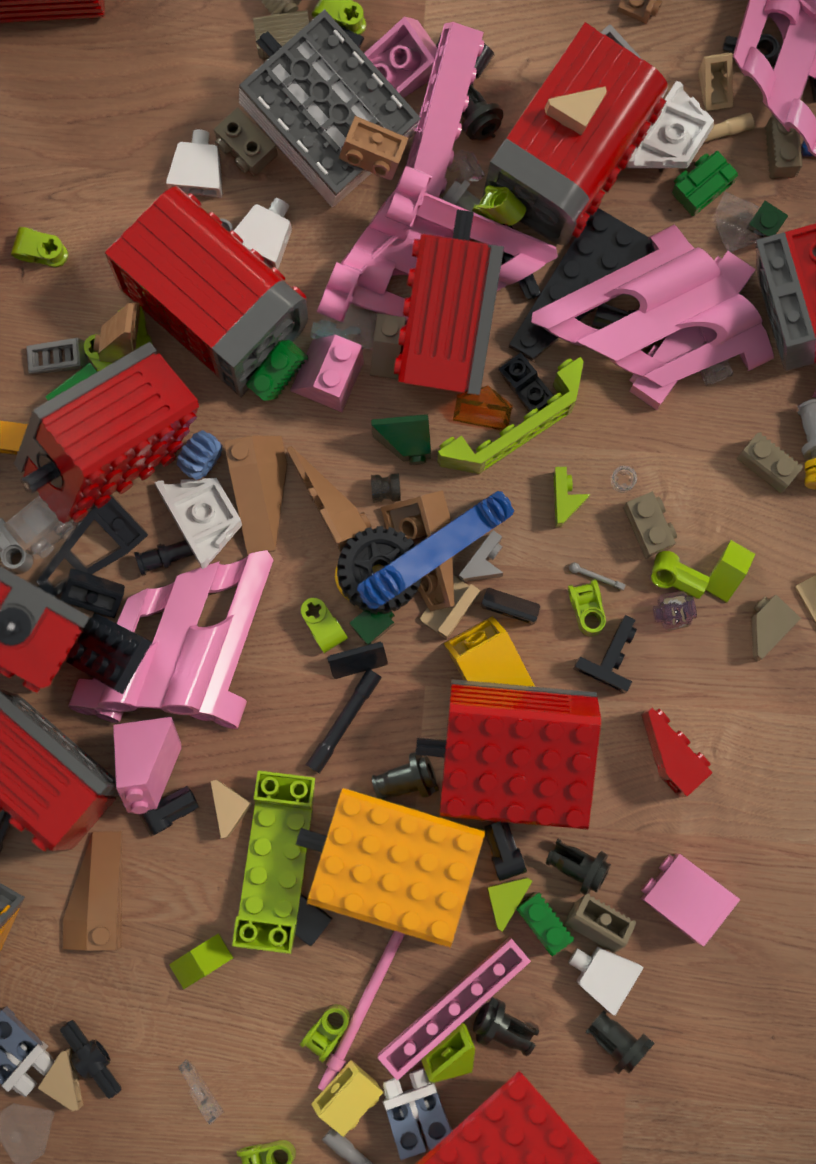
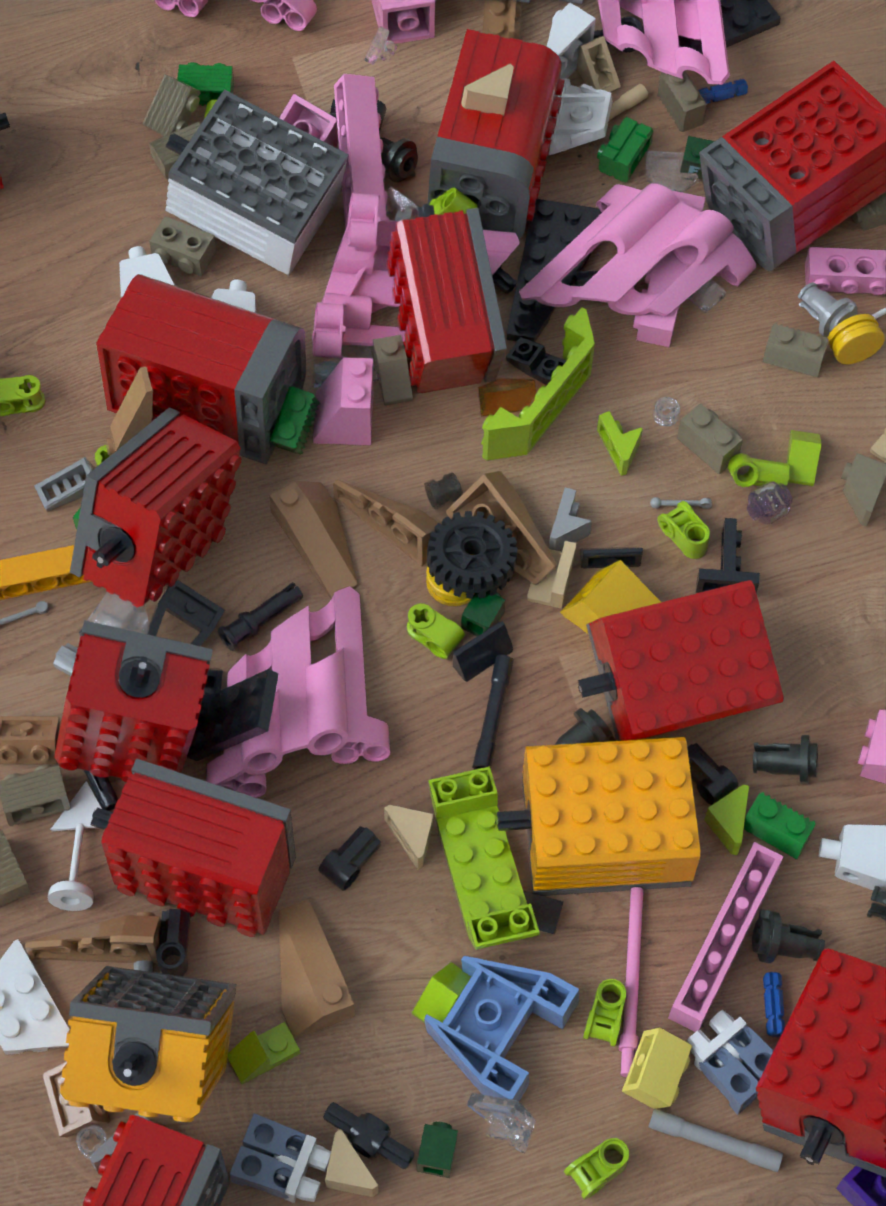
camera: 25 degrees left, 20 degrees down
(34, 952) = (262, 1052): none -> lime slope
(141, 1093) = (437, 1149): none -> dark green brick
(144, 761) = (313, 805): bright pink slope -> none
(199, 455) = (249, 518): medium blue gear -> none
(201, 515) = (272, 571): white wing -> none
(227, 1002) = (491, 1017): none -> medium blue wedge
(373, 148) = (316, 188): medium nougat bracket -> none
(405, 437) = (442, 436): dark green slope -> none
(435, 550) = (518, 514): blue arm -> none
(451, 1056) = (746, 981): lime slope -> none
(471, 1080) = (774, 1004): none -> blue axle
(600, 923) = (833, 801): dark tan brick -> none
(673, 757) = (828, 622): red slope -> none
(701, 37) = (569, 31): none -> white slope

